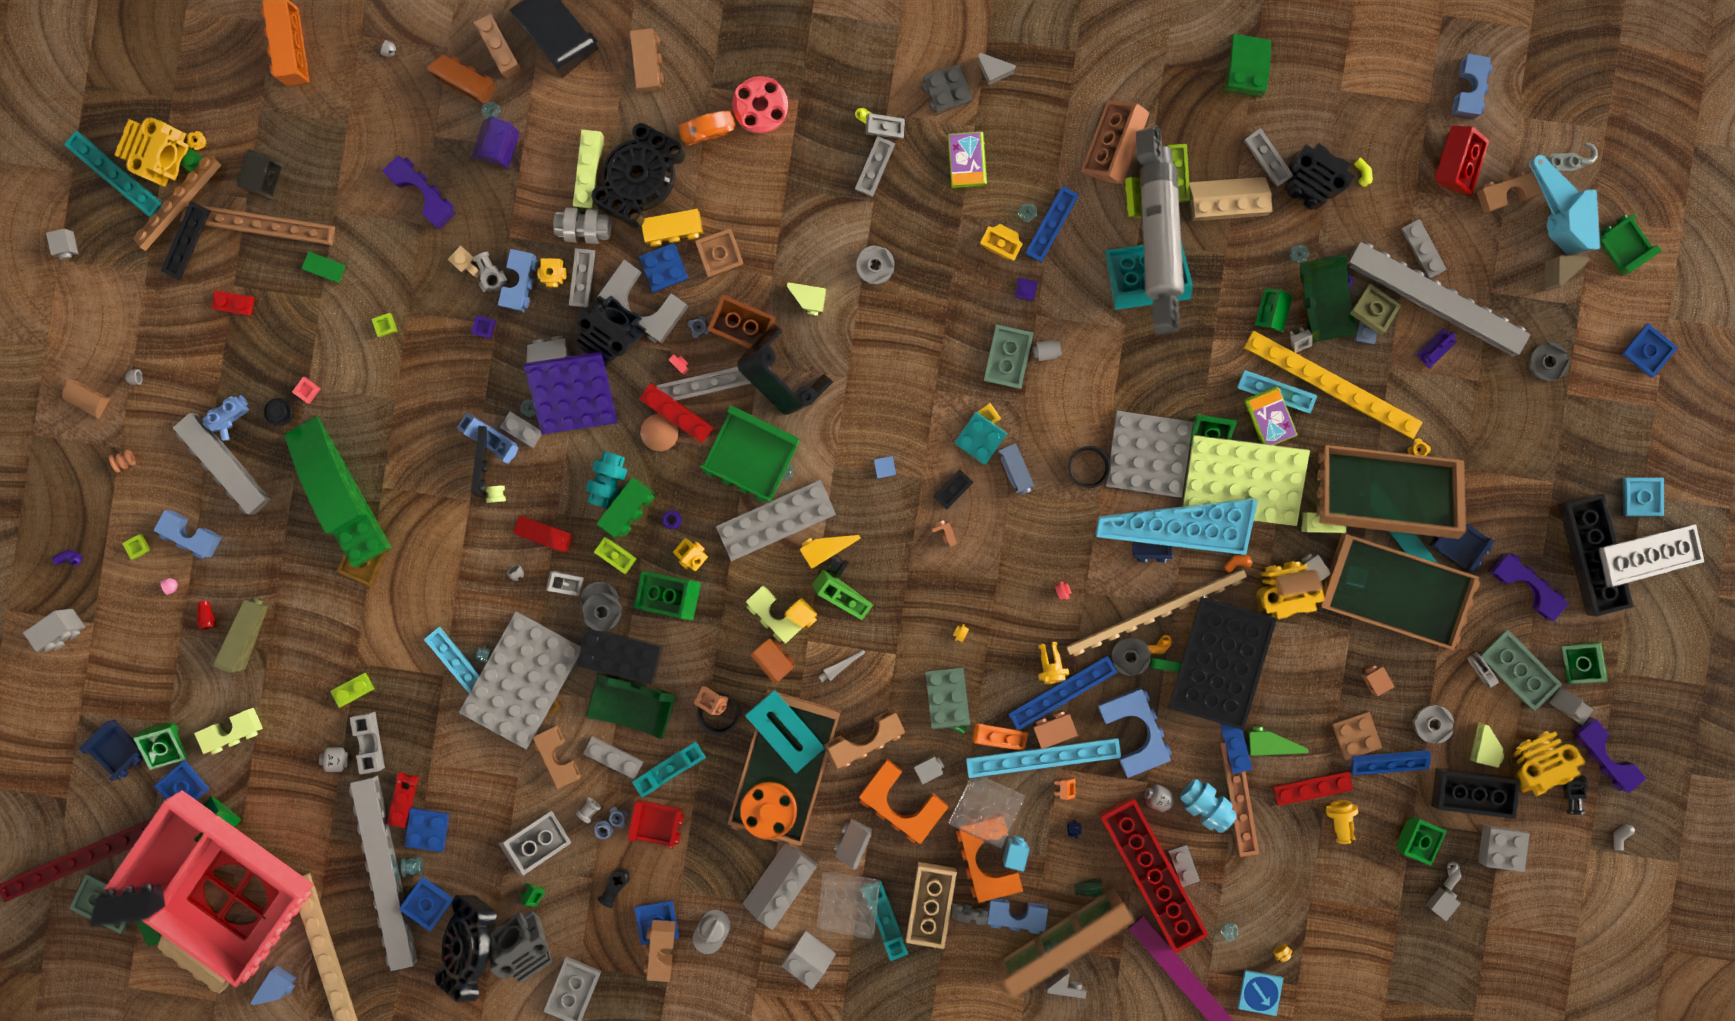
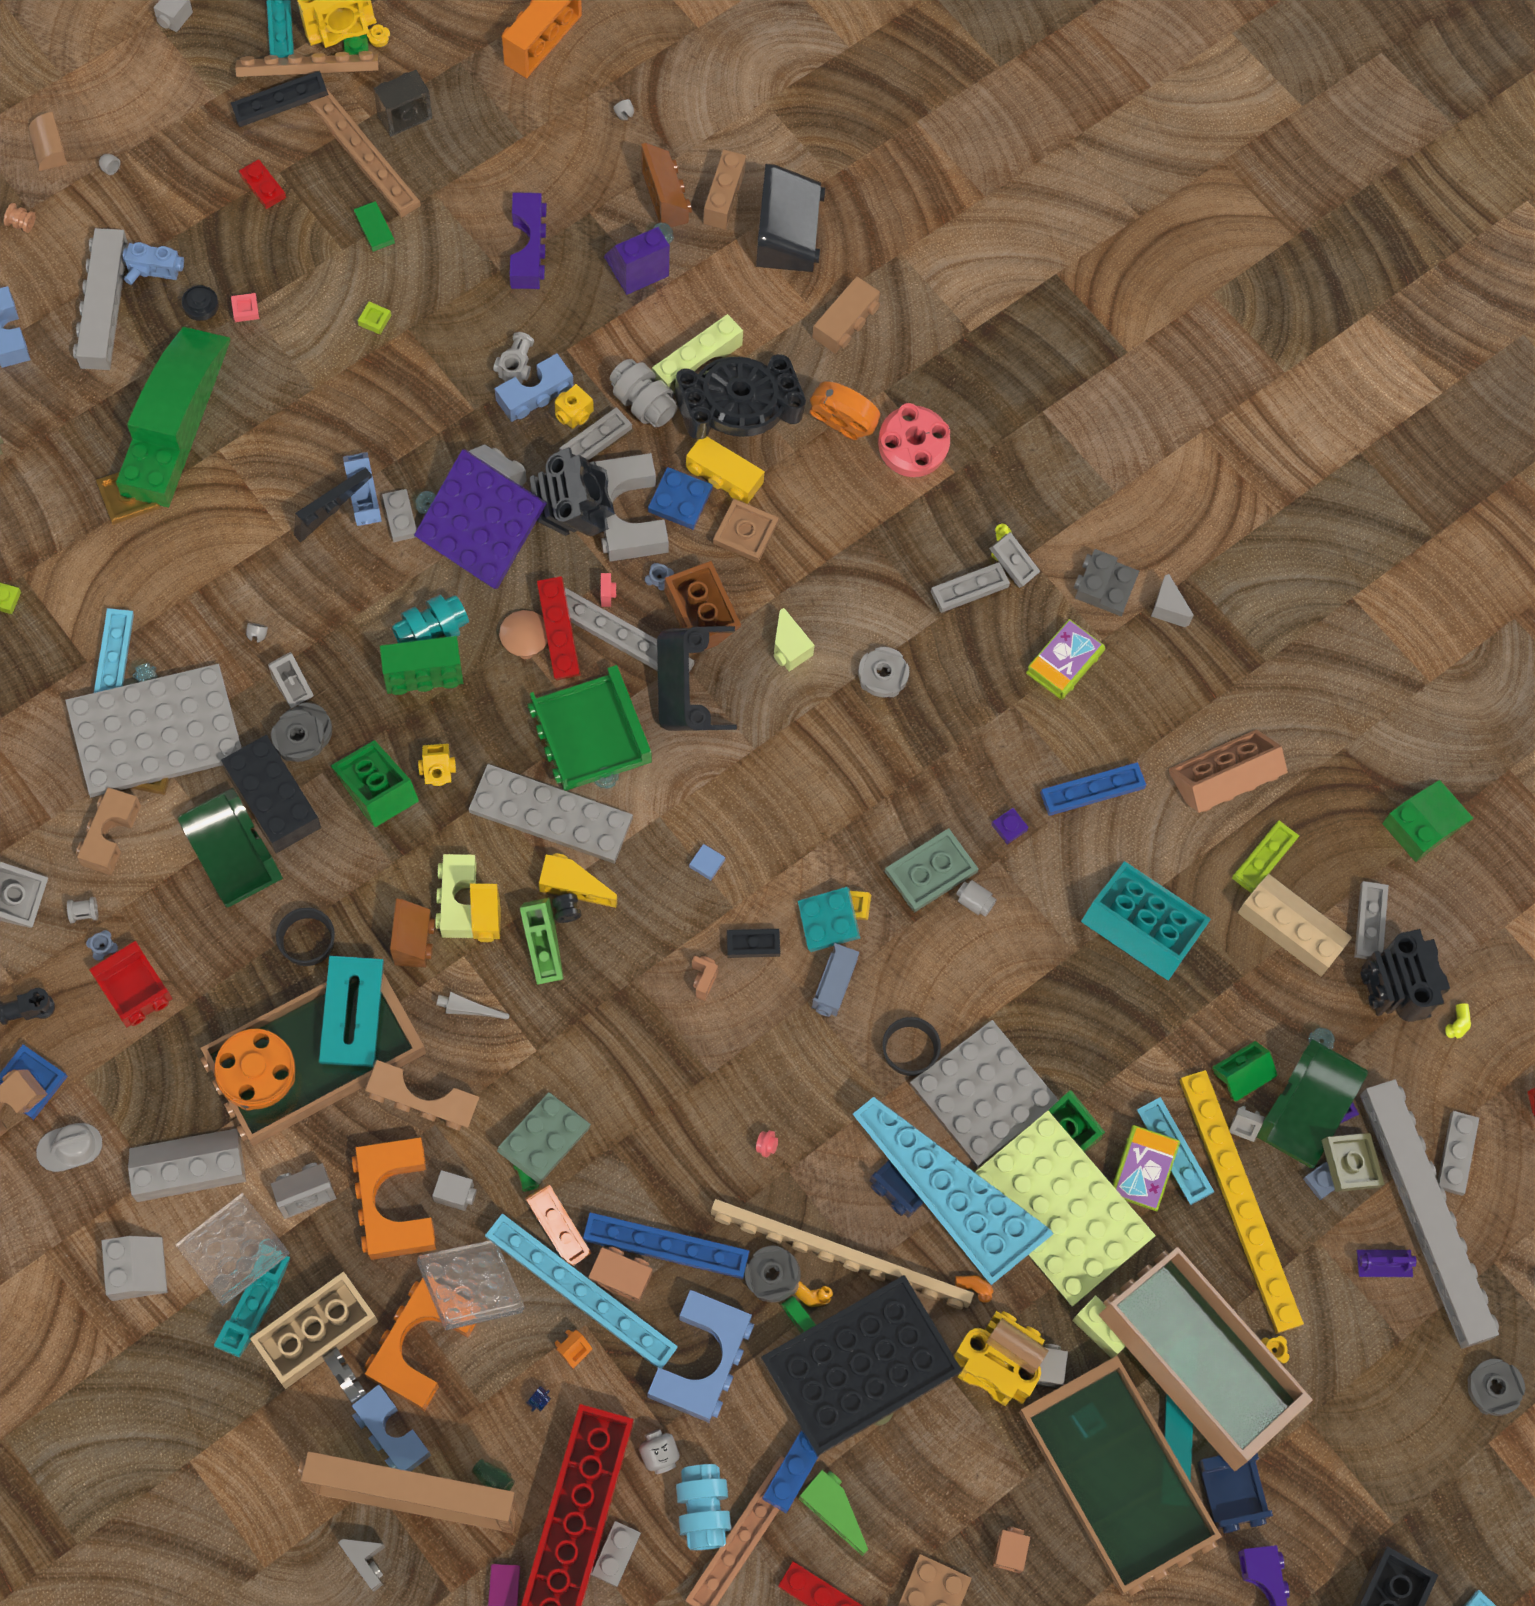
camera: 35 degrees right, 20 degrees down
(464, 261) = (502, 330): tan plate -> none
(483, 327) = (461, 398): dark purple plate -> none
(495, 494) = (314, 545): yellowish green wheel -> none
(543, 533) = (321, 622): red slope -> none
(603, 834) = (69, 942): sand blue plate -> none
(613, 757) = (160, 885): light grey plate -> none
(615, 555) = (365, 701): lime plate -> none
(665, 519) = (450, 714): dark purple plate -> none
(668, 769) = (200, 946): teal slope -> none
(711, 701) = (311, 915): nougat bracket -> none
(960, 633) = (622, 1088): yellow plate -> none
(1002, 241) = (1027, 760): yellow slope -> none
(1015, 853) = (455, 1359): medium azure brick -> none
(1027, 207) = (1080, 751): clear light blue plate -> none
(1052, 672) = (677, 1212): yellow piece -> none
(1133, 193) = (1200, 837): lime plate -> none
(1160, 228) = (1197, 877): piece -> none

